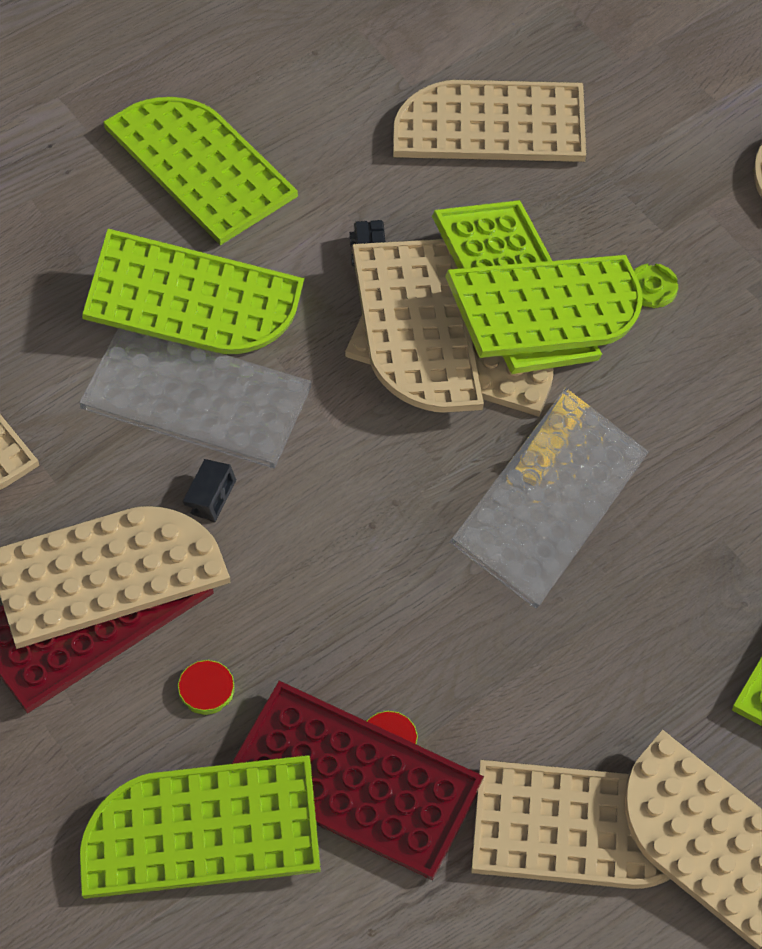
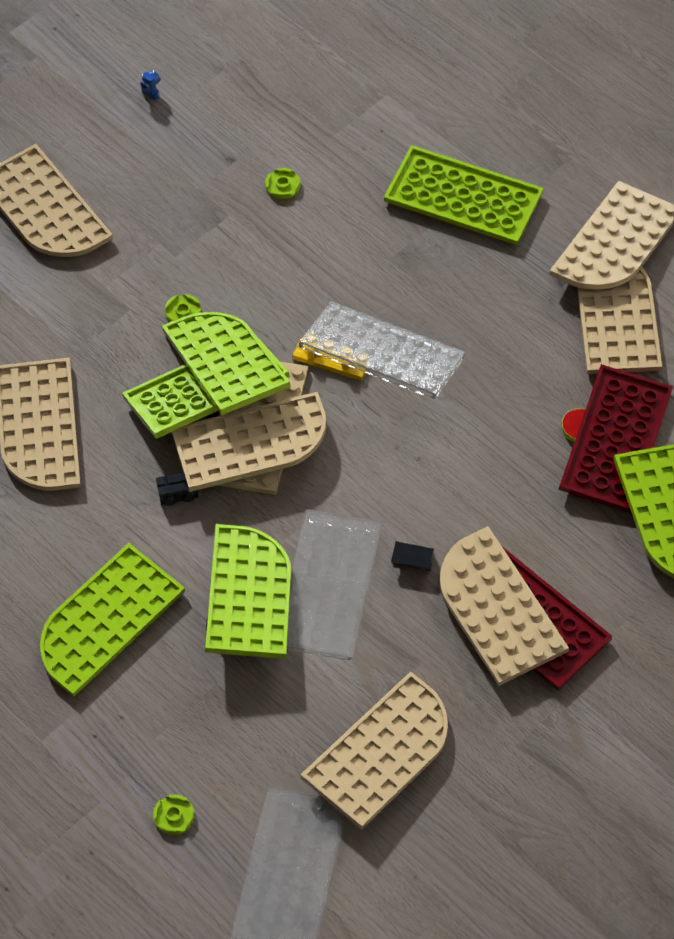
camera: 95 degrees left, 0 degrees up
(206, 687) = (567, 535): red tile -> none

